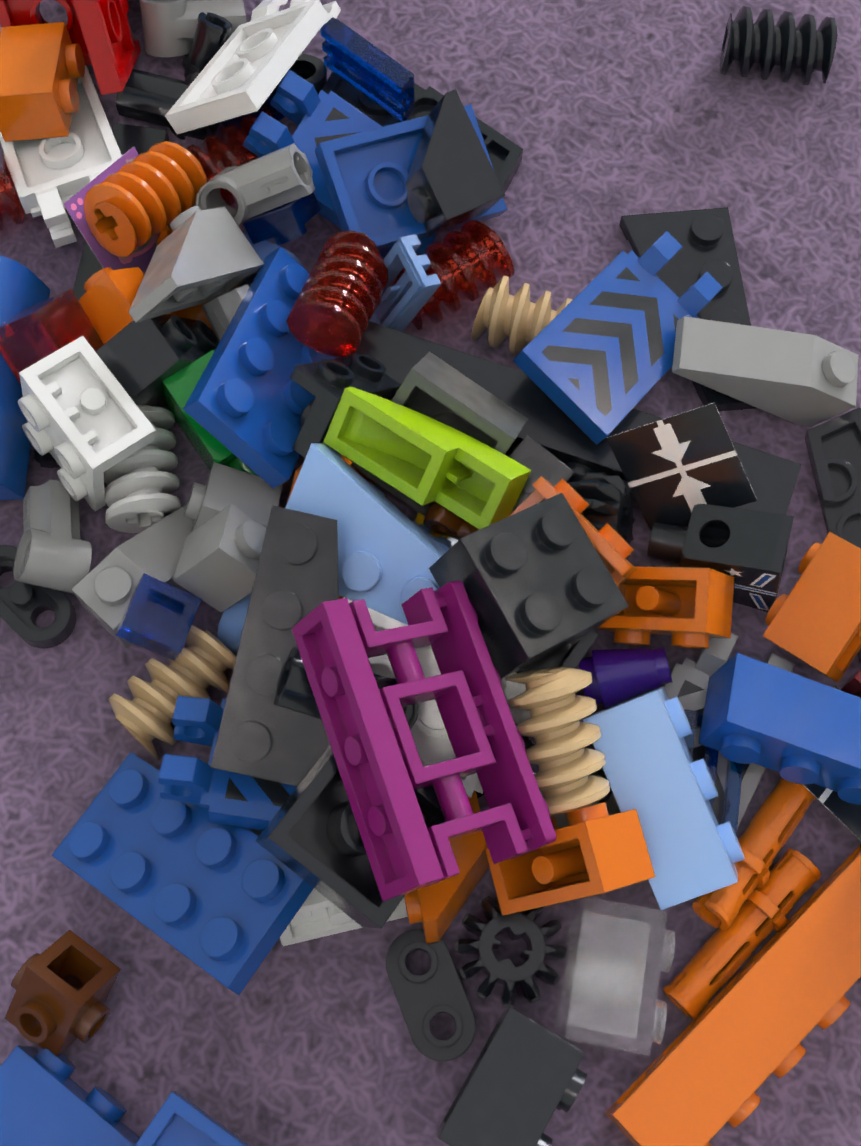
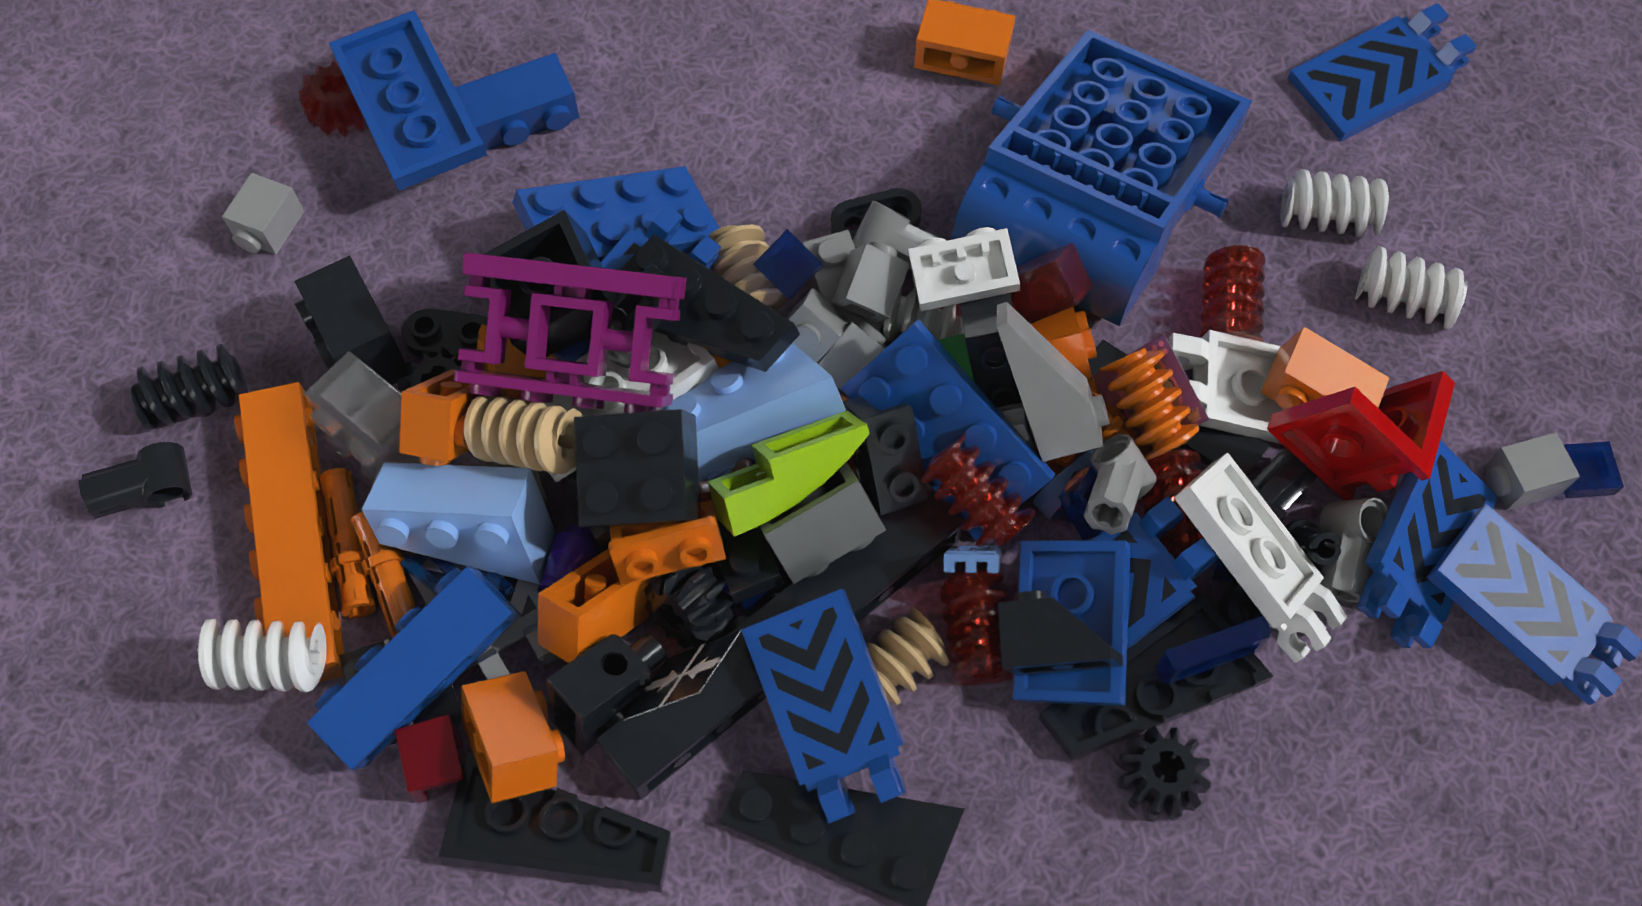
camera: 120 degrees right, 5 degrees down
(62, 994) = (606, 131): reddish brown brick -> none
(137, 518) = (871, 282): none -> light grey brick
(495, 81) = (1180, 790): none -> black gear
(768, 368) = (735, 813): light grey slope -> none

